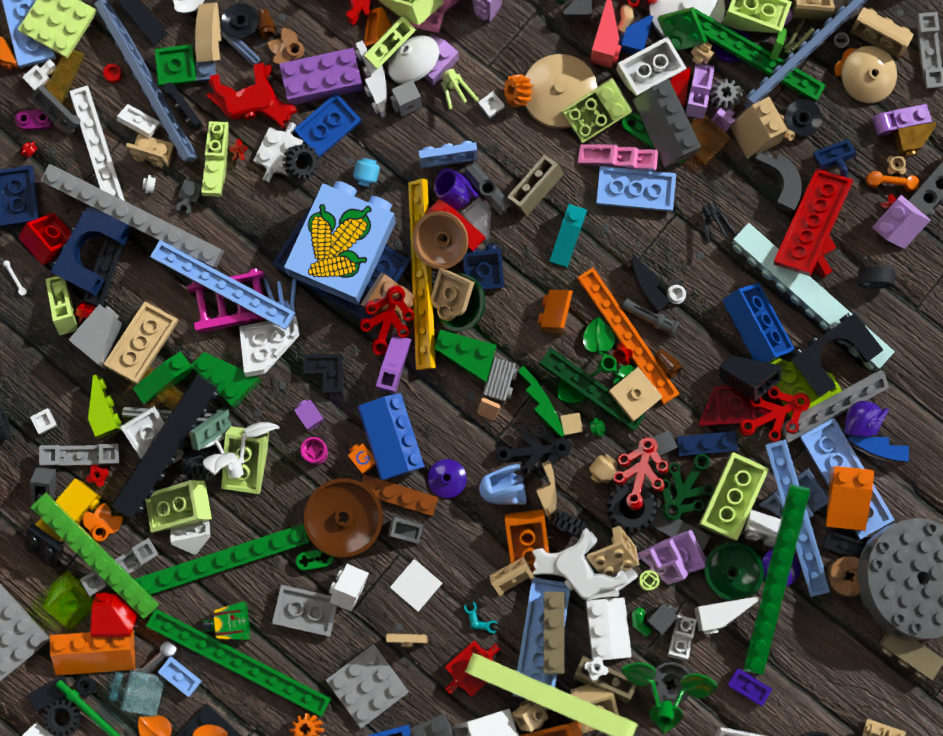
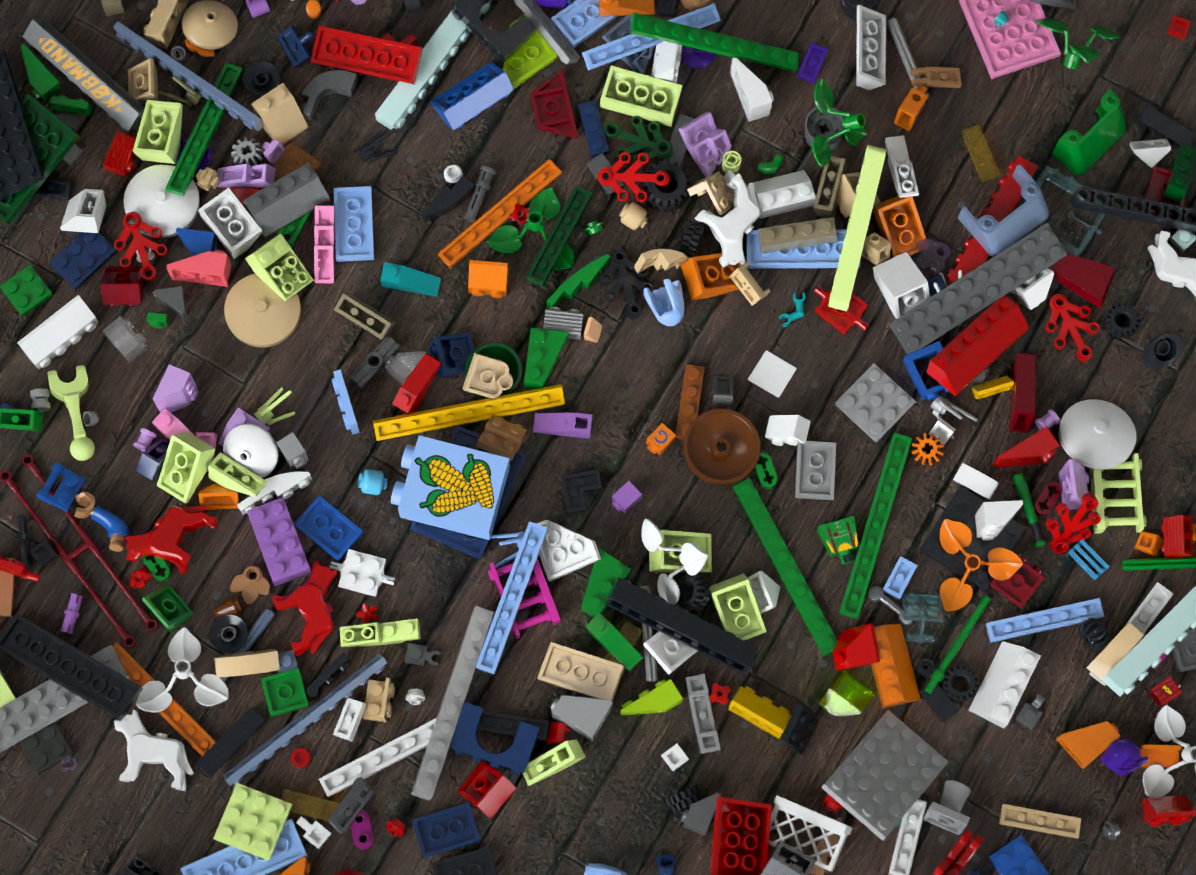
camera: 105 degrees left, 5 degrees down
(22, 291) = (544, 807): white hinge -> none
(42, 482) = (743, 743): dark grey slope -> none
(94, 555) = (800, 674): bright green plate -> none
(101, 519) = (766, 680): orange plate -> none
(130, 562) = (805, 654): light grey slope -> none
(210, 429) = (657, 585): sand green plate -> none
(290, 161) = (371, 553): black tyre -> none
(314, 451) = (661, 485): dark pink wheel -> none
(387, 317) = (501, 425): red plant -> none
(391, 436) = (636, 413): blue slope -> none
(406, 639) = (826, 368): tan plate -> none
(430, 244) = (447, 391): medium nougat dish -> none
(453, 188) = (379, 392): dark purple helmet -> none
(454, 486) = (665, 369): dark purple dish -> none
(491, 104) = (286, 372): white plate -> none
(517, 90) = (269, 346): orange gear -> none
(571, 424) = (593, 251): tan tile -> none
(597, 662) = (822, 197): white plate -> none
(626, 16) = (176, 255): tan arm -> none
(635, 394) = (557, 195): tan plate -> none
(662, 618) = (764, 145): dark grey brick -> none
(668, 363) = (522, 171): reddish brown cone -> none
(682, 28) = (187, 196): green plate -> none
(682, 638) = (778, 128): white slope -> none
(742, 562) = (708, 77): dark green dish -> none
(750, 376) = (525, 95): black slope -> none
(778, 44) = (194, 107): bright green tile -> none
(778, 413) = (556, 65): red plant -> none

